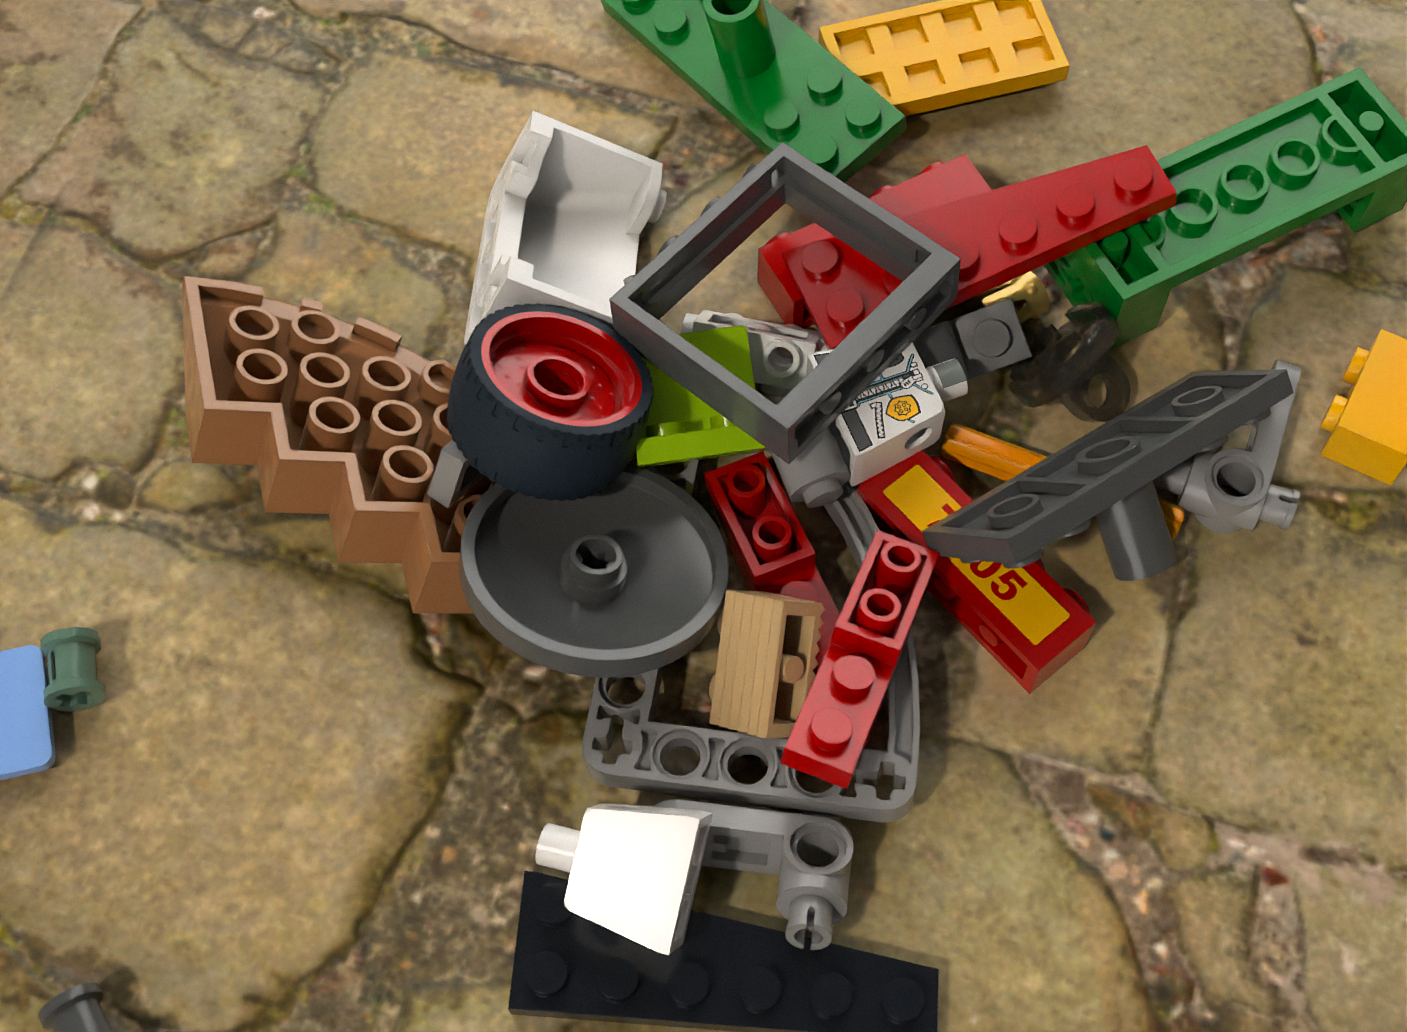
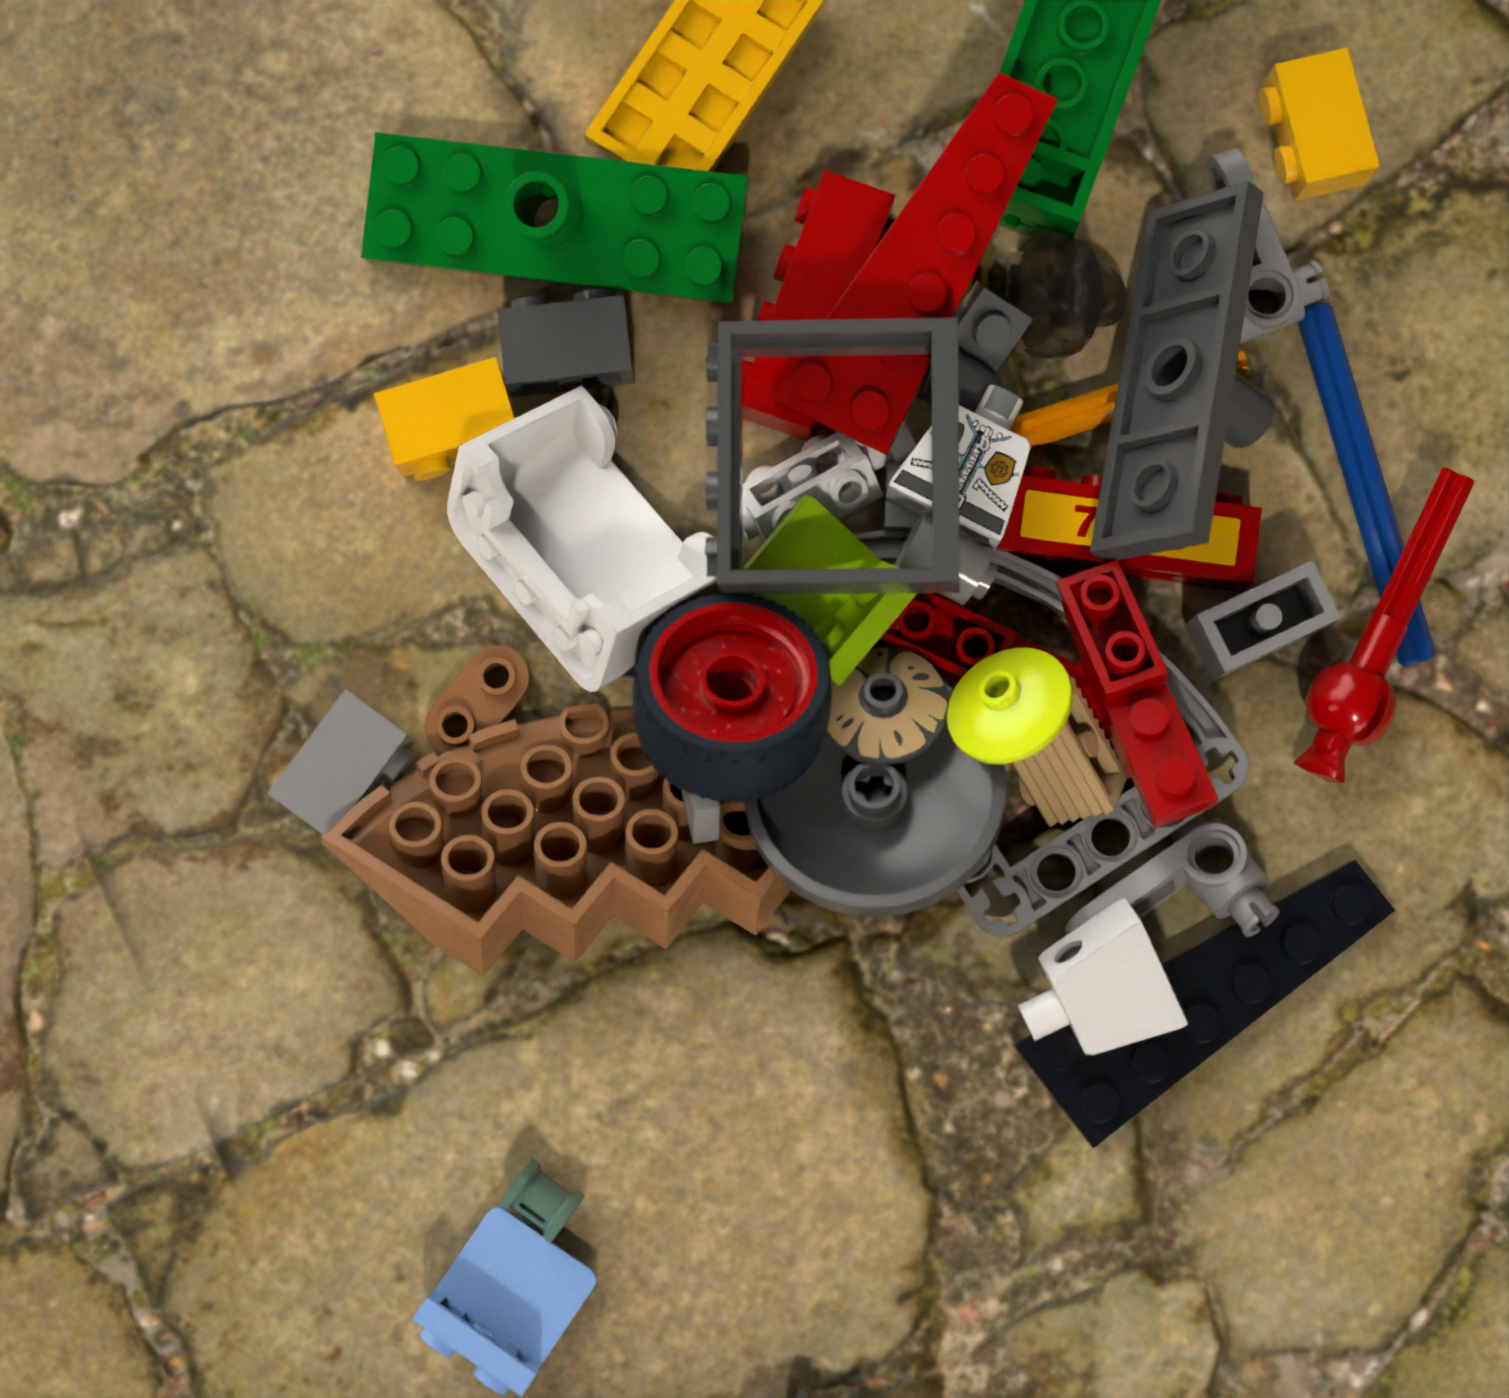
camera: 45 degrees left, 20 degrees up
(262, 253) = (343, 763): none -> light grey brick
(391, 307) = (477, 701): none -> medium nougat plate
(555, 97) = (439, 413): none -> yellow brick
(661, 516) = (893, 728): none -> tan dish
(691, 139) = (565, 343): none -> dark grey brick
(752, 577) = (1021, 720): none -> neon yellow dish
(1023, 709) = (1262, 620): none -> light grey brick
(1048, 834) = (1353, 699): none -> red piece
(1201, 698) = (1360, 465): none -> blue axle

